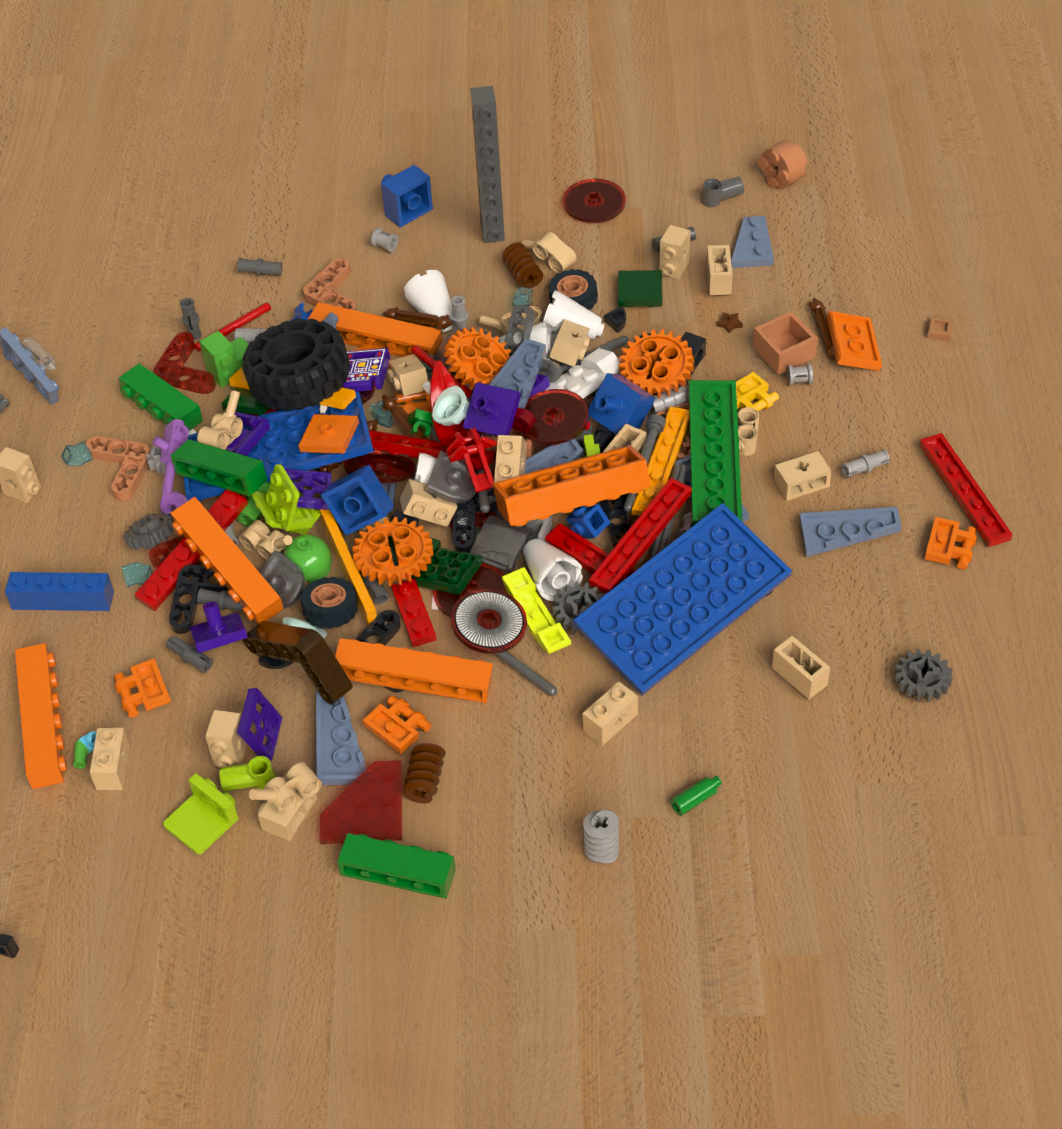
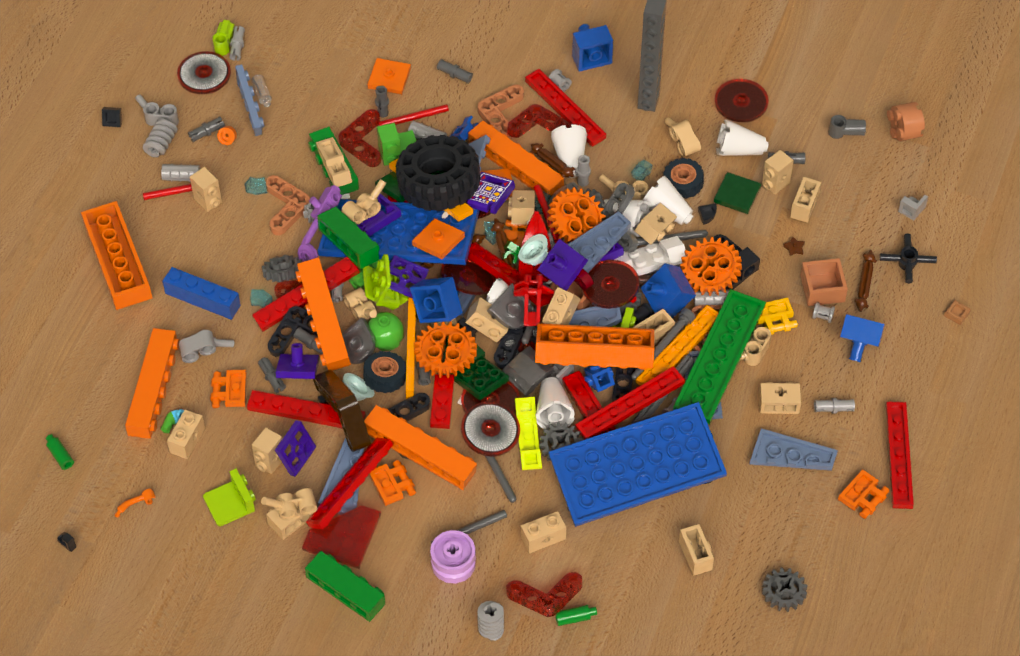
camera: 20 degrees right, 5 degrees up
(16, 417) = (227, 135): none -> orange tile
(84, 645) = (203, 343): none -> light grey beam
(88, 851) = (147, 496): none -> orange piece
(163, 395) = (334, 162): none -> tan slope
(178, 289) = (389, 74): none -> orange plate
(238, 681) = (294, 408): none -> red plate
(247, 774) = (273, 481): lime piece -> none
(347, 742) = (349, 483): none -> red plate
(372, 283) = (540, 117): none -> clear red beam
(399, 261) = (564, 105): none -> red plate
(423, 772) = (394, 522): reddish brown piece -> none
(515, 780) = (453, 556): none -> lavender wheel
(516, 744) = (483, 522): none -> dark grey bar
(522, 265) = (654, 141): reddish brown piece -> none
(614, 236) = (739, 141): none -> white cone
(662, 791) = (549, 603): none -> clear red beam
(753, 244) = (848, 184): sand blue wing -> none
(832, 244) = (912, 207): none -> light grey panel
(854, 341) = (881, 298): orange tile -> none
(856, 377) = (861, 333): none -> blue brick
(859, 292) = (908, 258): none -> black bar

